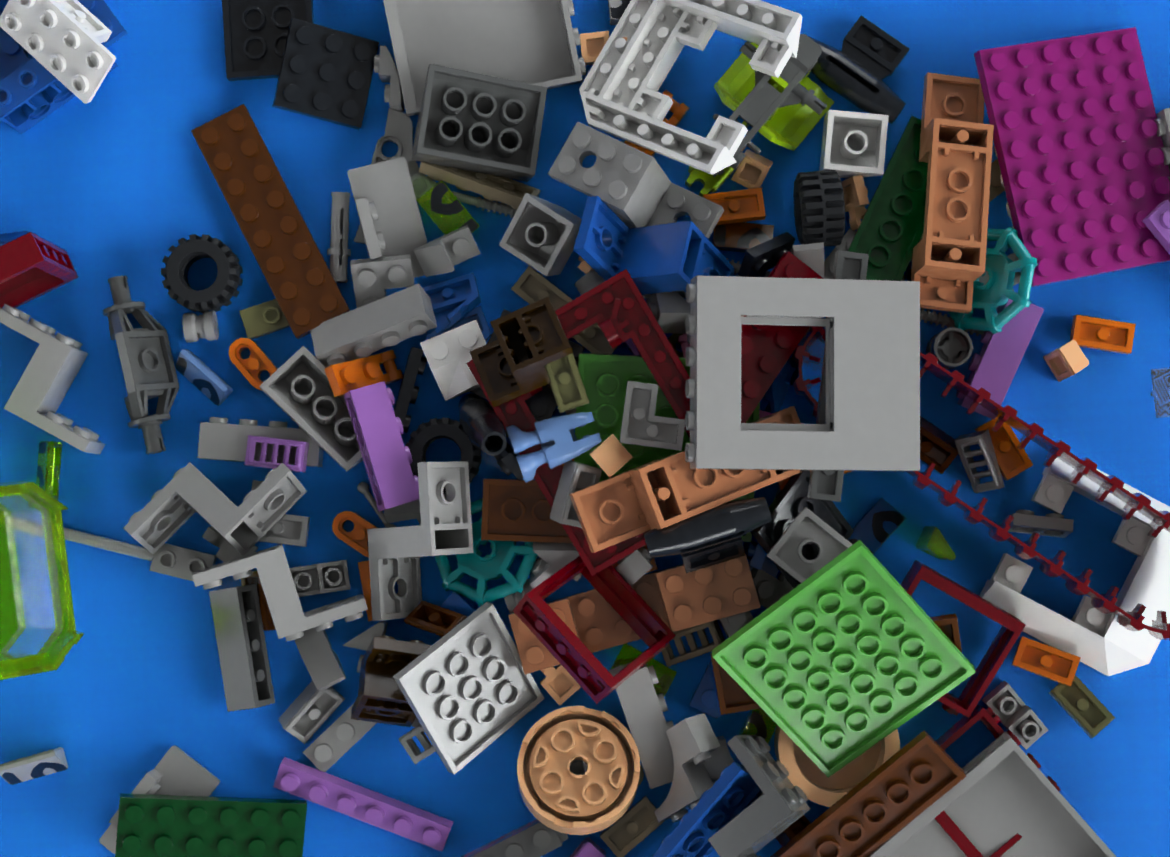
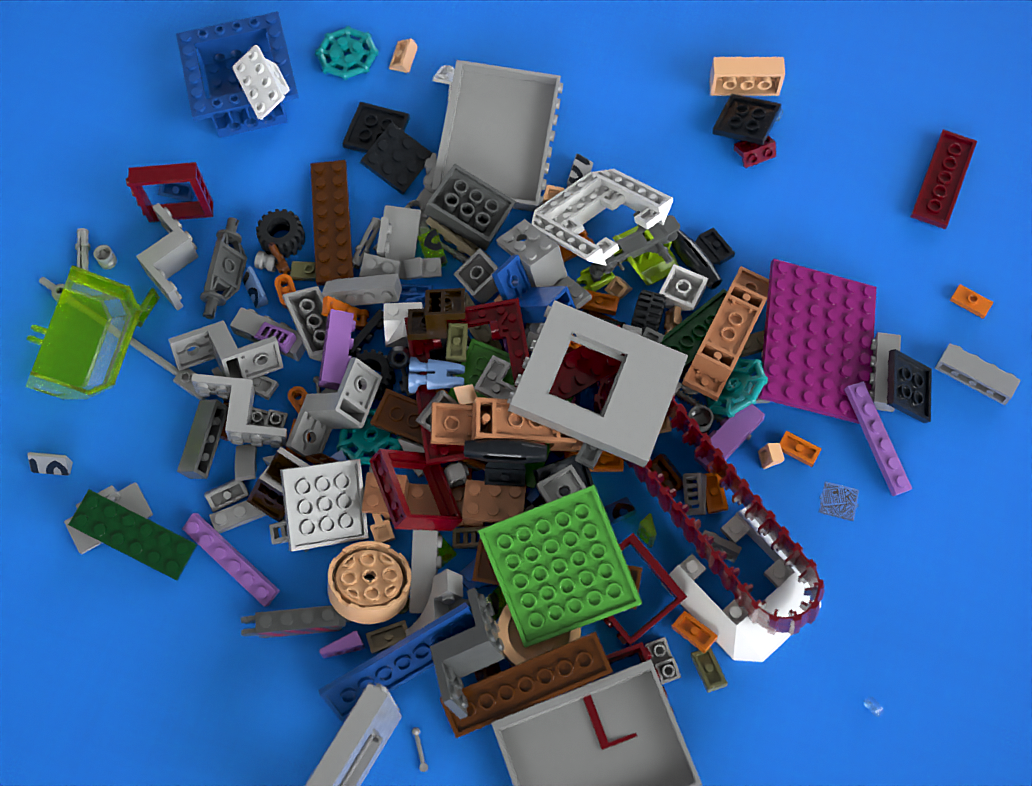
camera: 25 degrees right, 20 degrees down
(228, 325) = (282, 265): none -> reddish brown plate

